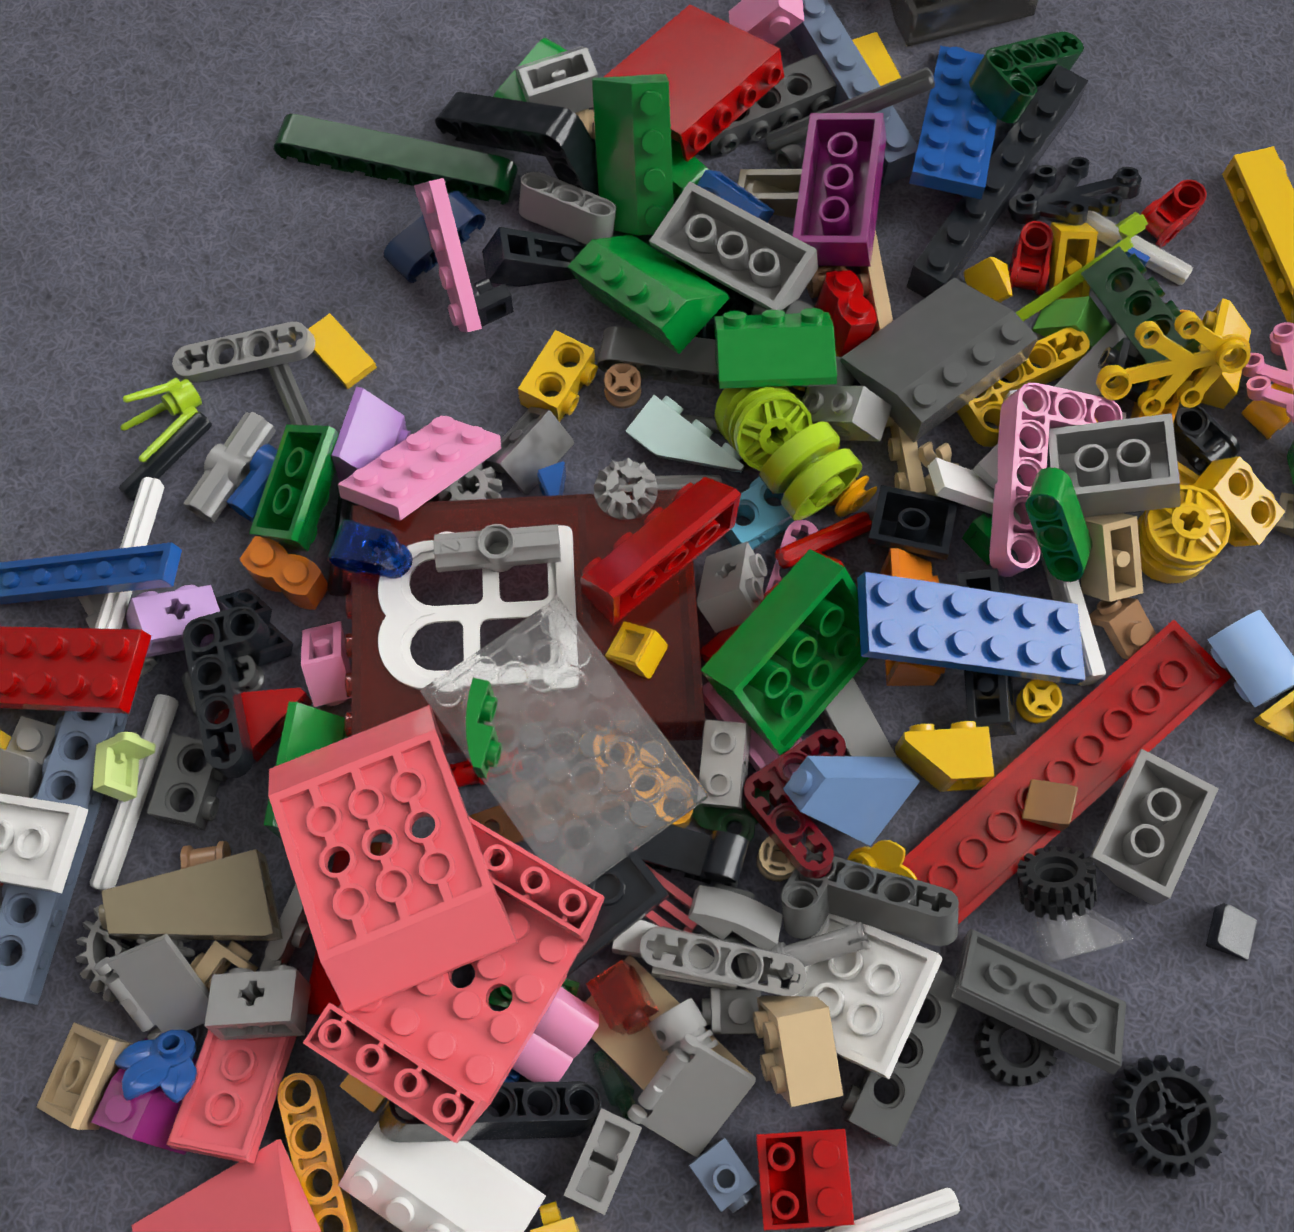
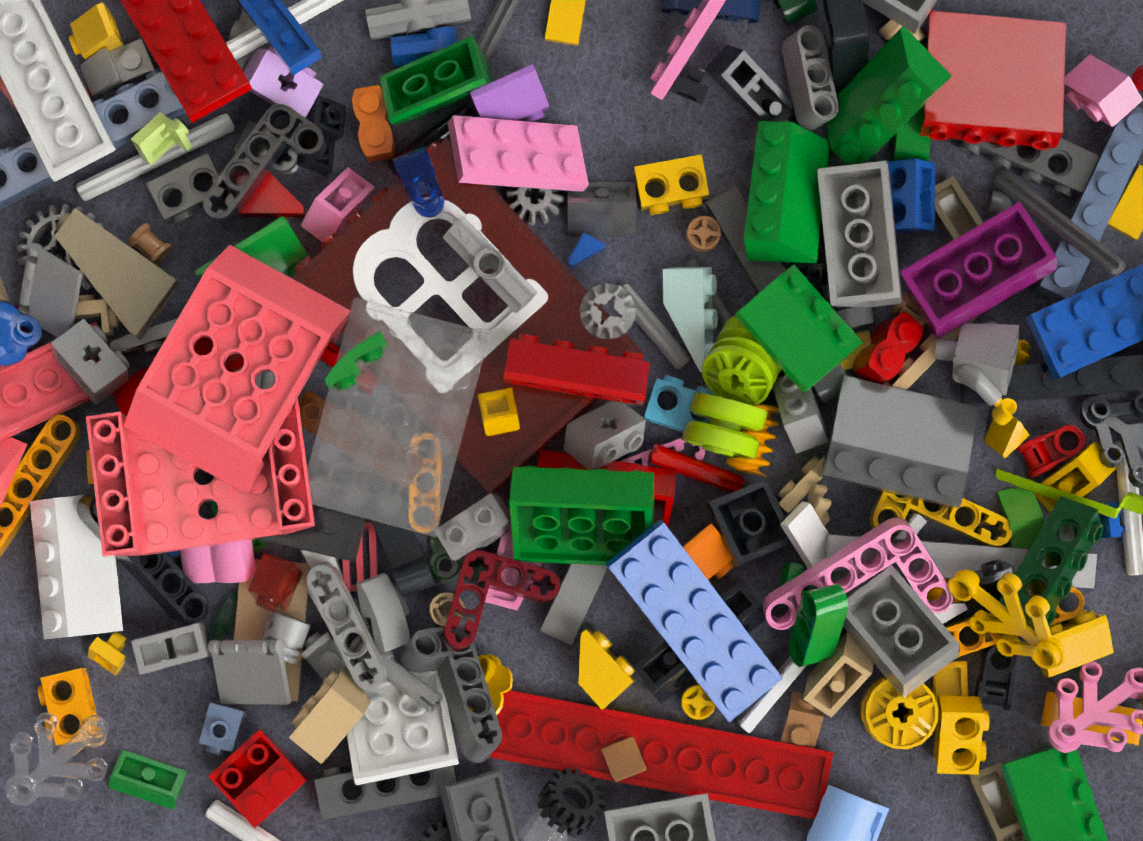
camera: 50 degrees right, 15 degrees up
(851, 792) = (522, 625): medium blue slope -> none
(922, 235) = (985, 362): none -> light grey torso

